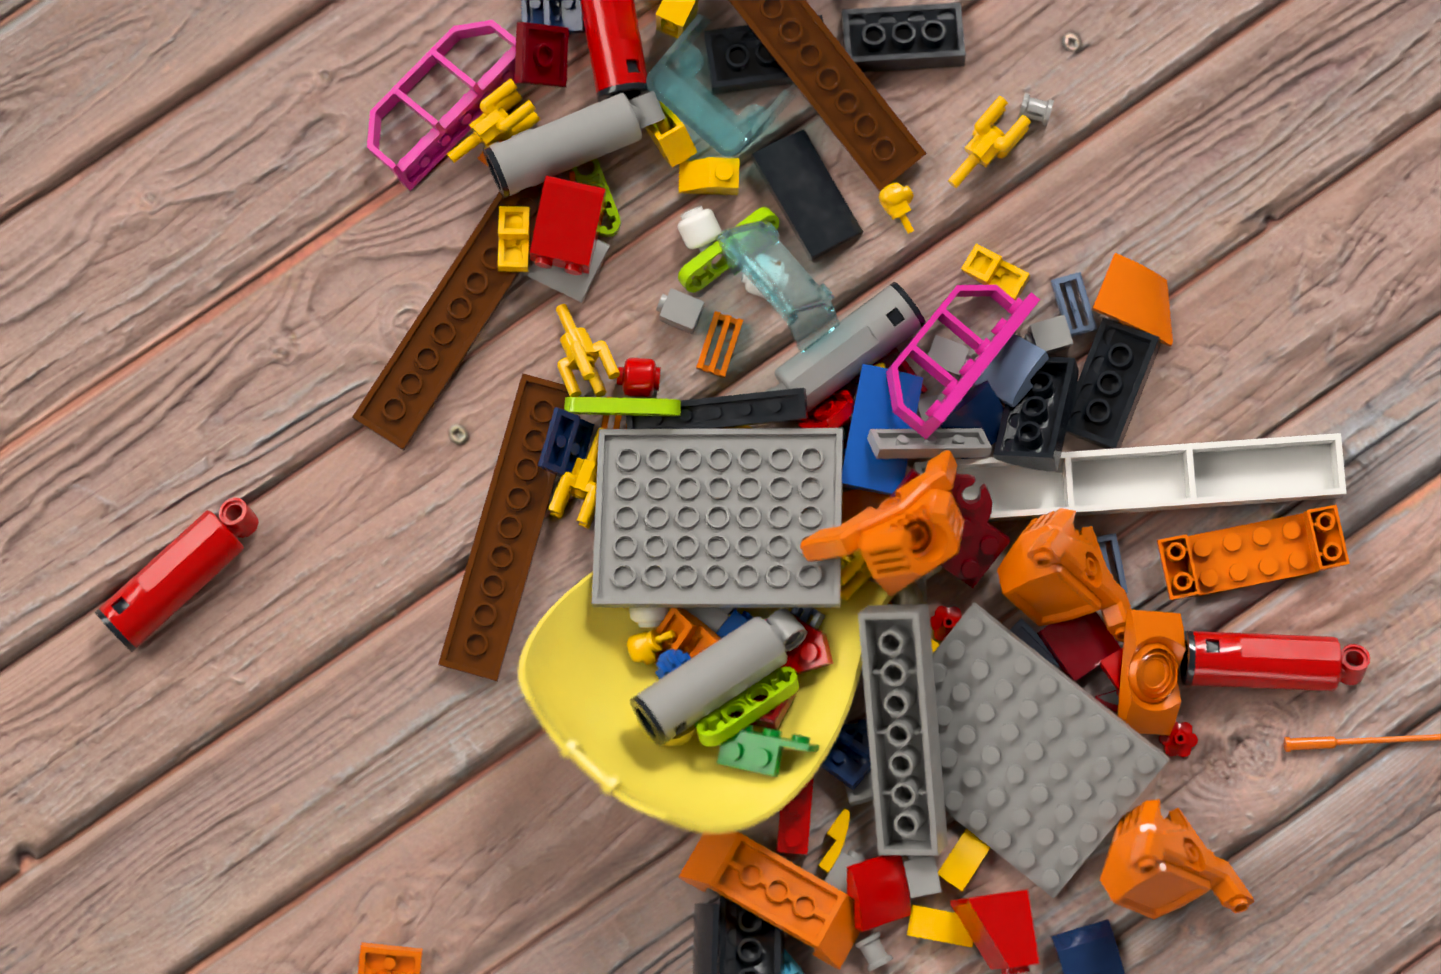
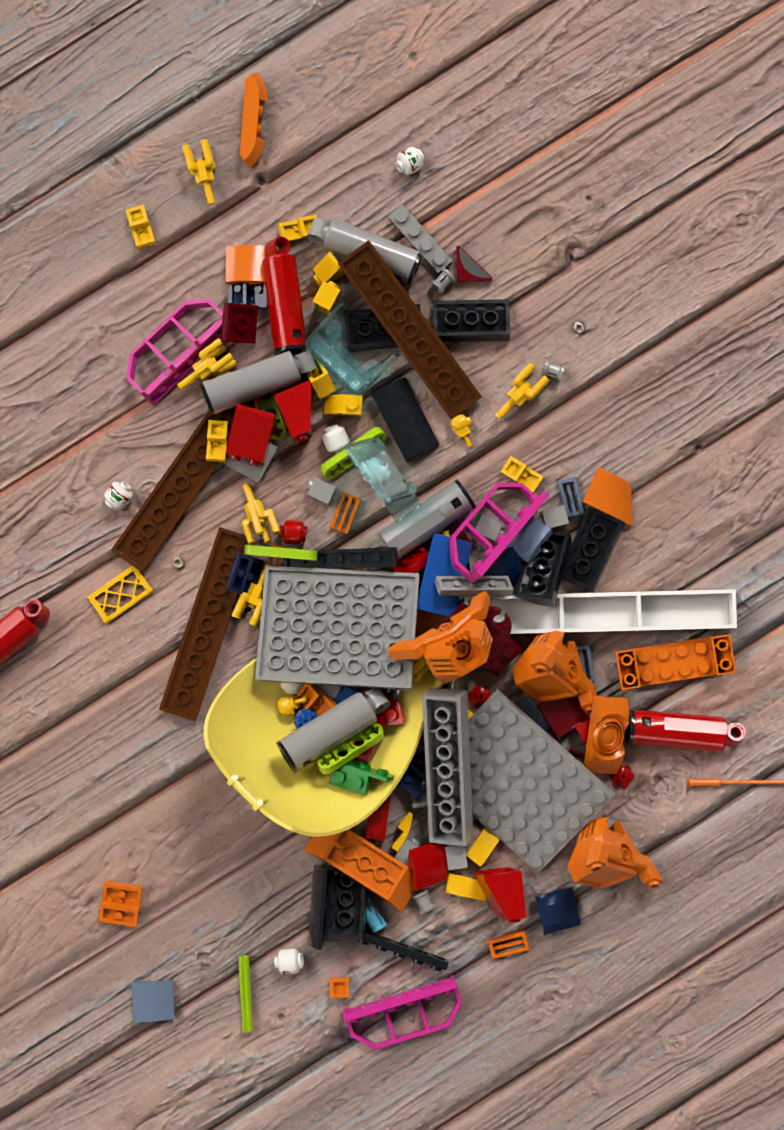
camera: 10 degrees right, 5 degrees up
(345, 478) = (105, 588): none -> yellow window
(360, 331) = (118, 495): none -> white head
(636, 185) = (297, 408): none -> red slope

